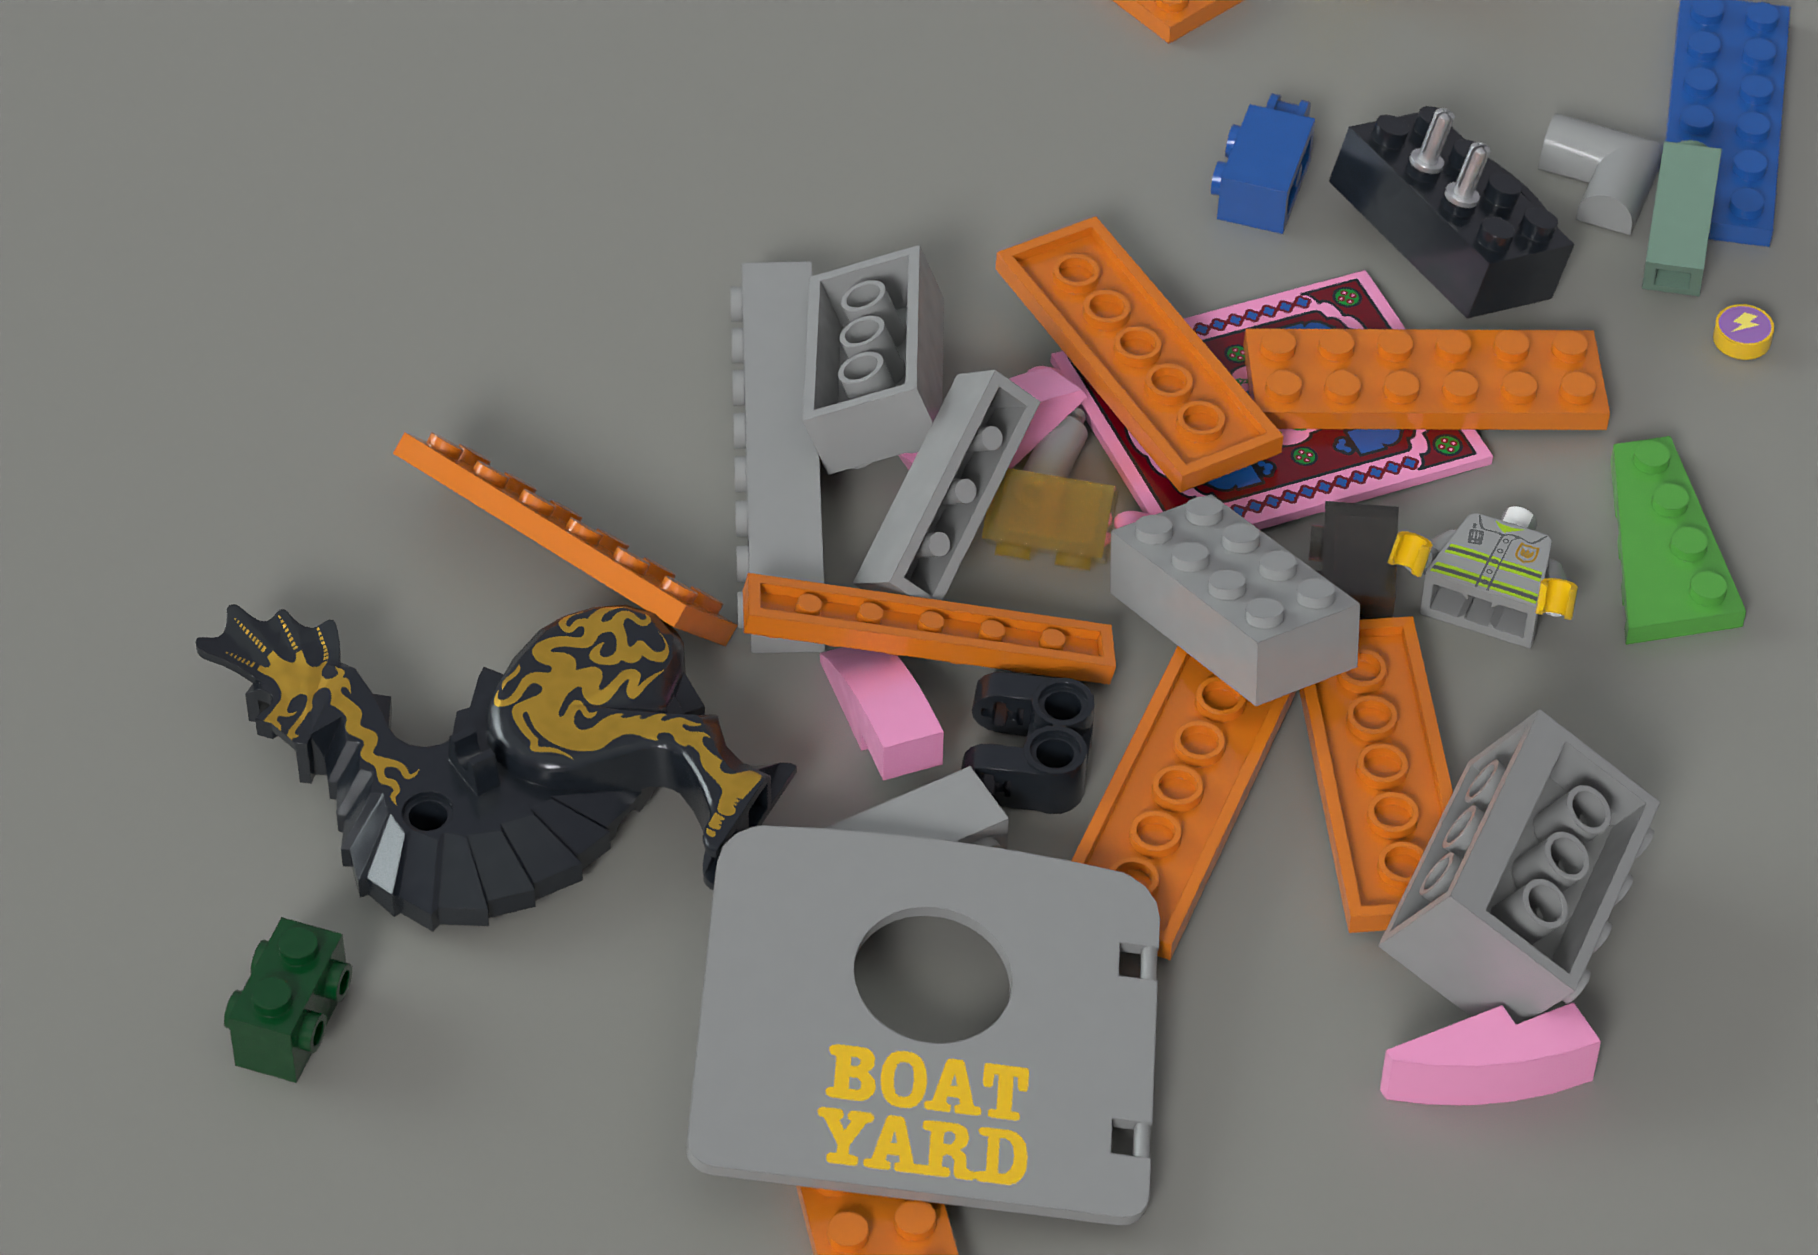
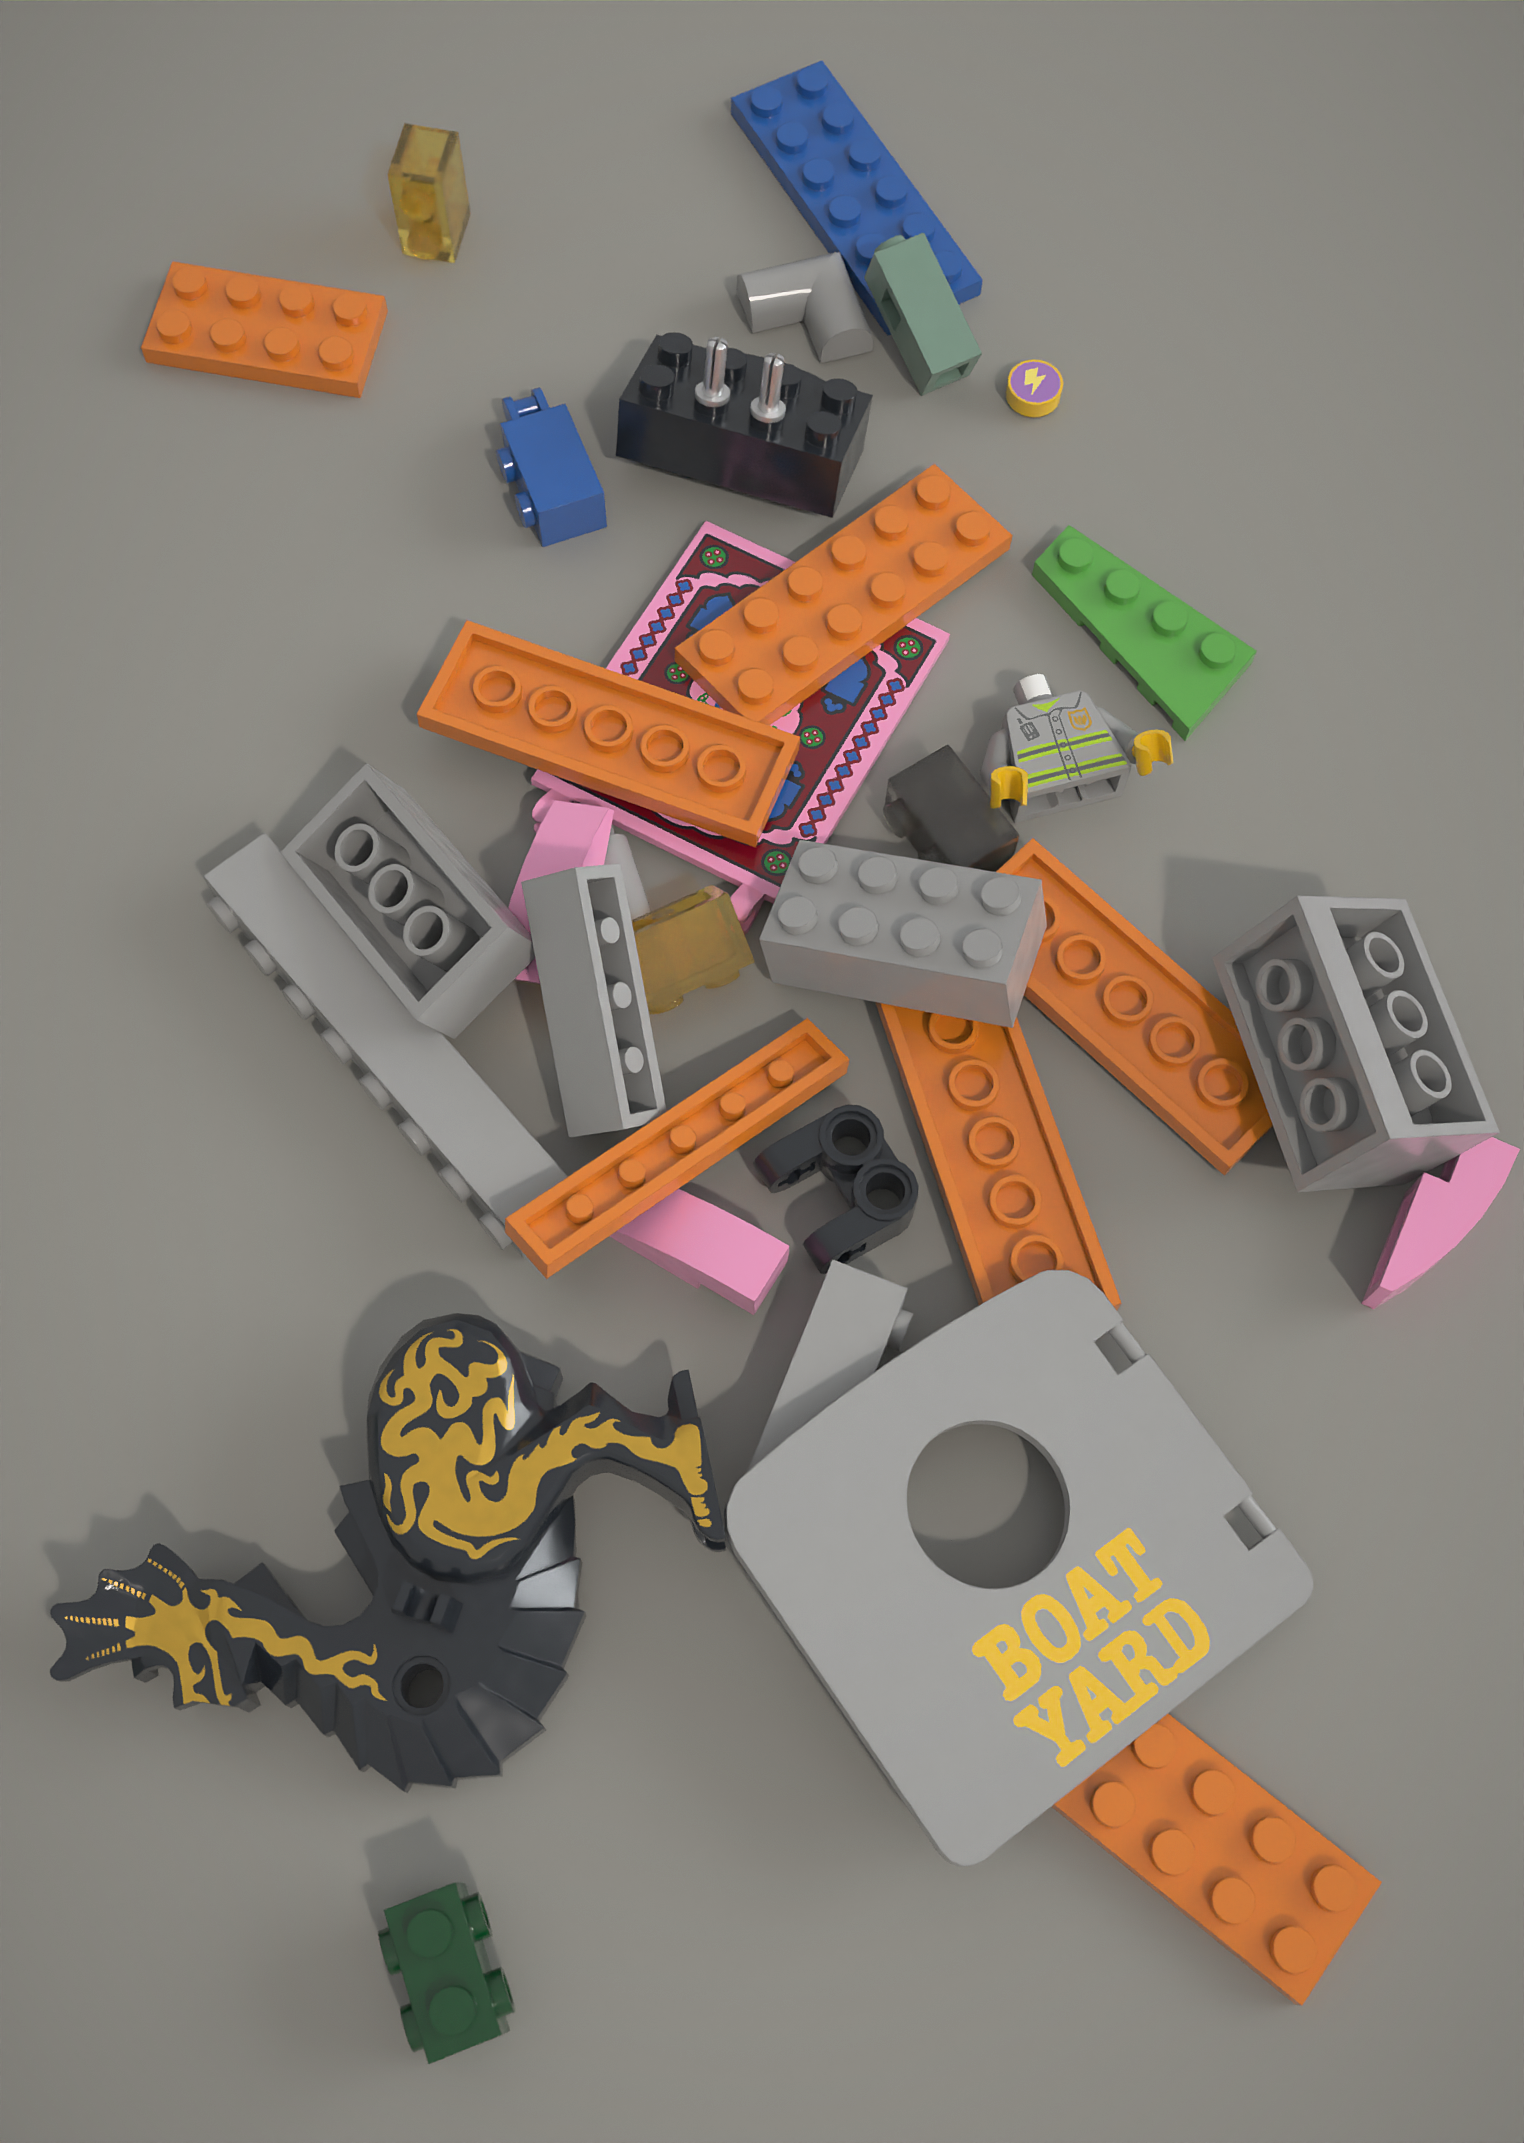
camera: 40 degrees left, 20 degrees up
(566, 536) = (284, 1282): orange plate -> none

